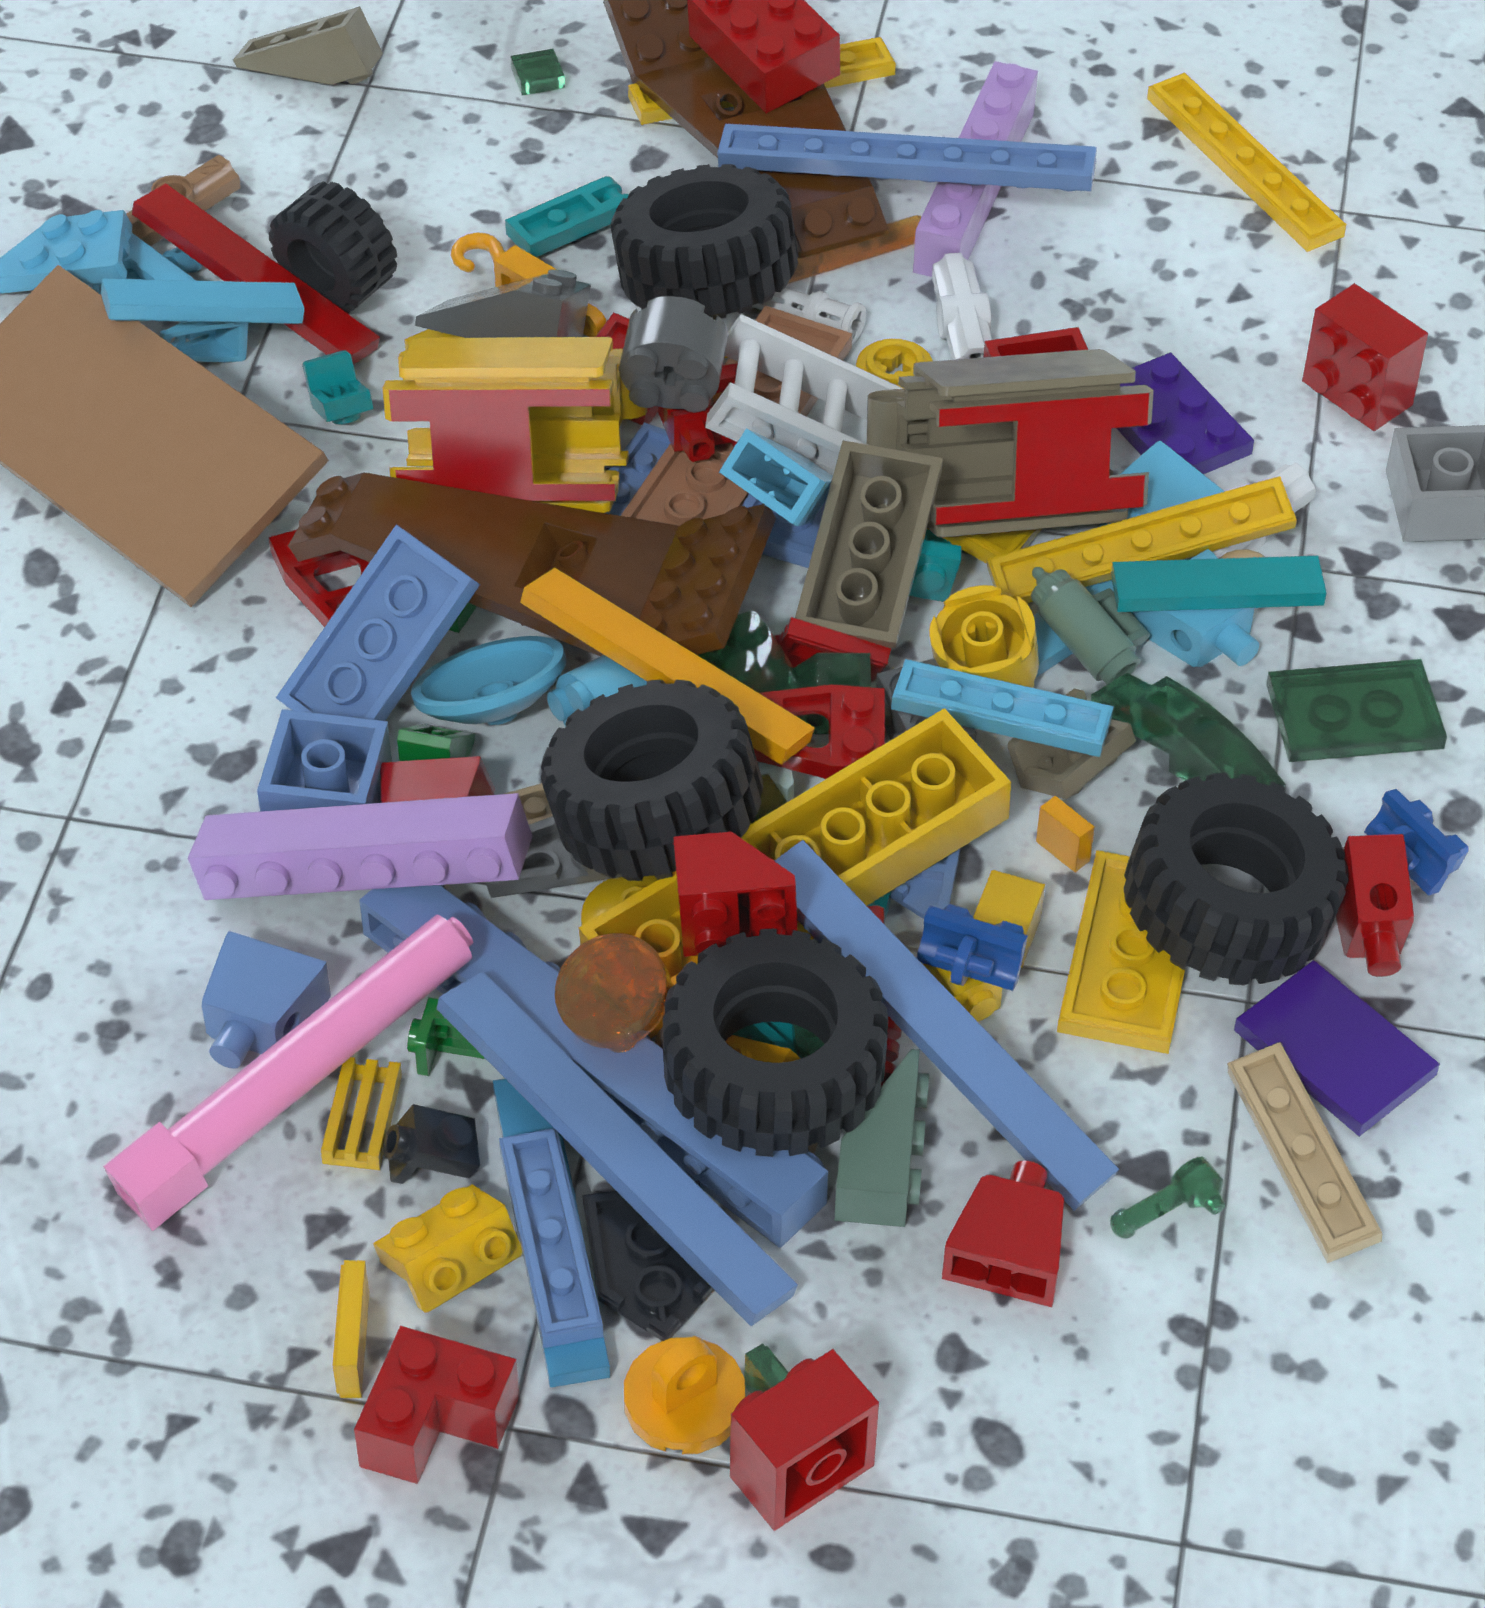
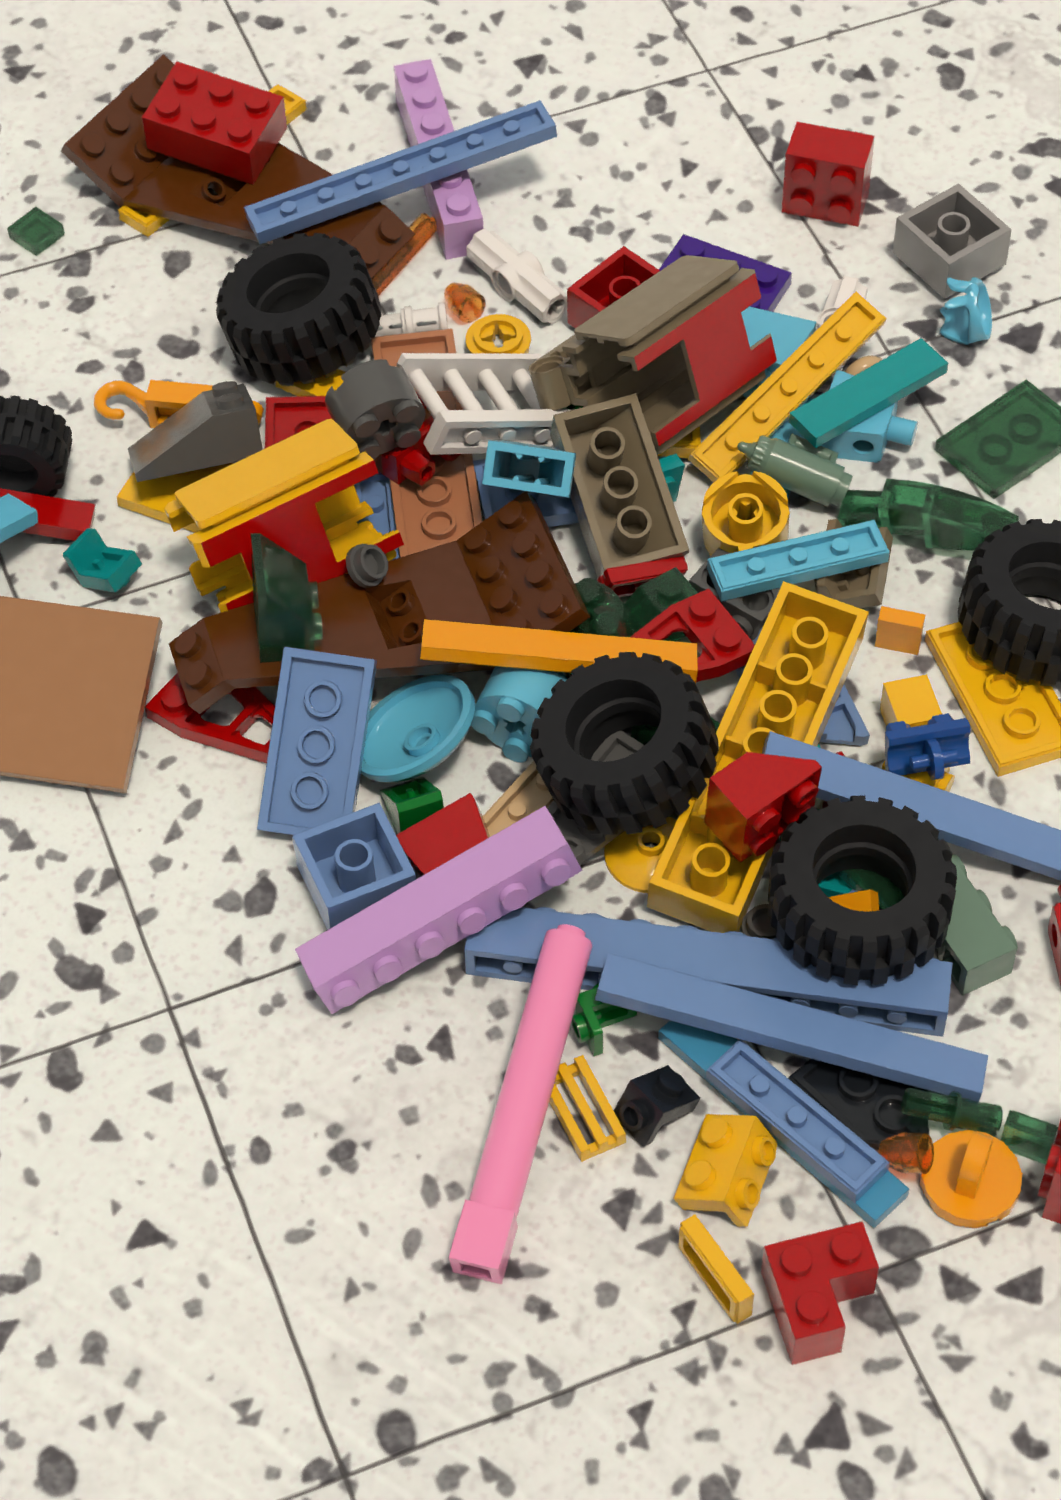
camera: 30 degrees left, 5 degrees up
(259, 996) = (442, 1065): medium blue torso -> none
(432, 480) = (282, 601): none -> clear green slope
(556, 499) = (366, 565): none -> dark grey plate
(566, 217) = (162, 337): teal plate -> none
(612, 991) = (716, 915): clear orange tile -> none
(633, 1329) = (908, 1152): none -> clear orange hose
(711, 1314) = (953, 1111): none -> clear green axle
(891, 317) = (464, 301): none -> clear orange hose
(1246, 162) = (614, 62): yellow tile -> none
(1410, 573) = (967, 316): none -> medium azure piece

